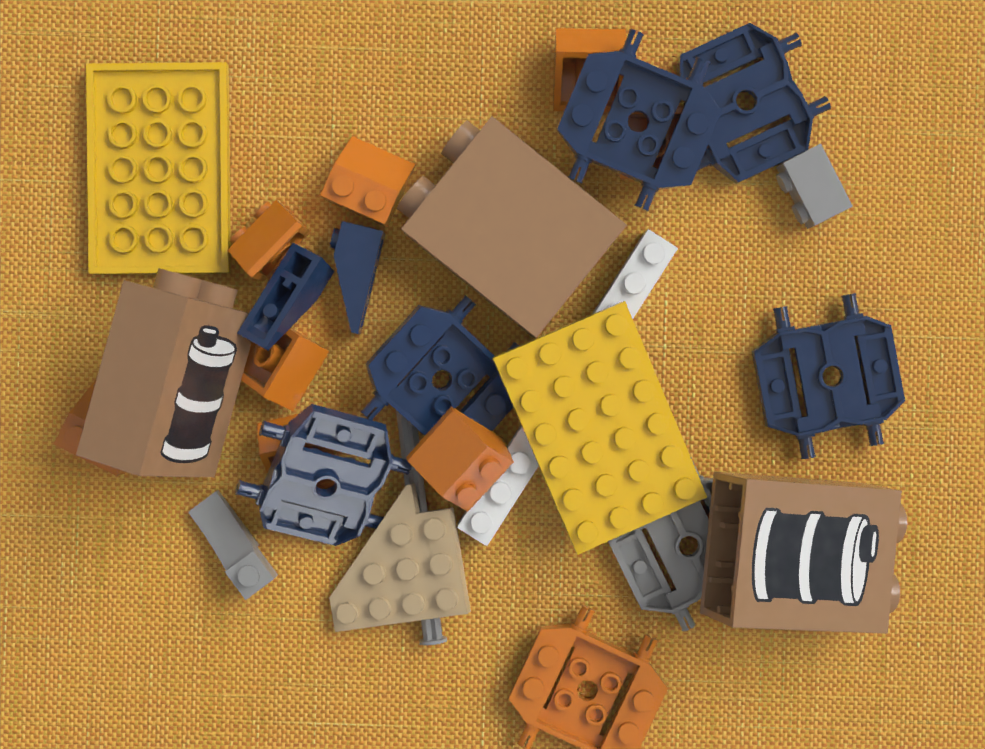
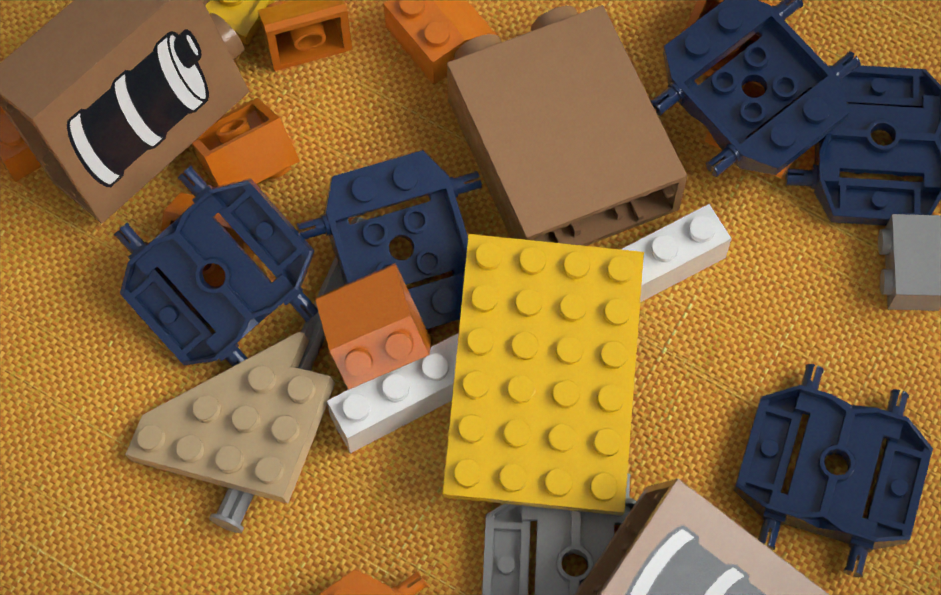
camera: 30 degrees right, 20 degrees down
(233, 545) = (76, 305): light grey slope -> none
(286, 296) = (293, 81): dark blue slope -> none
(356, 262) = (383, 93): dark blue slope -> none

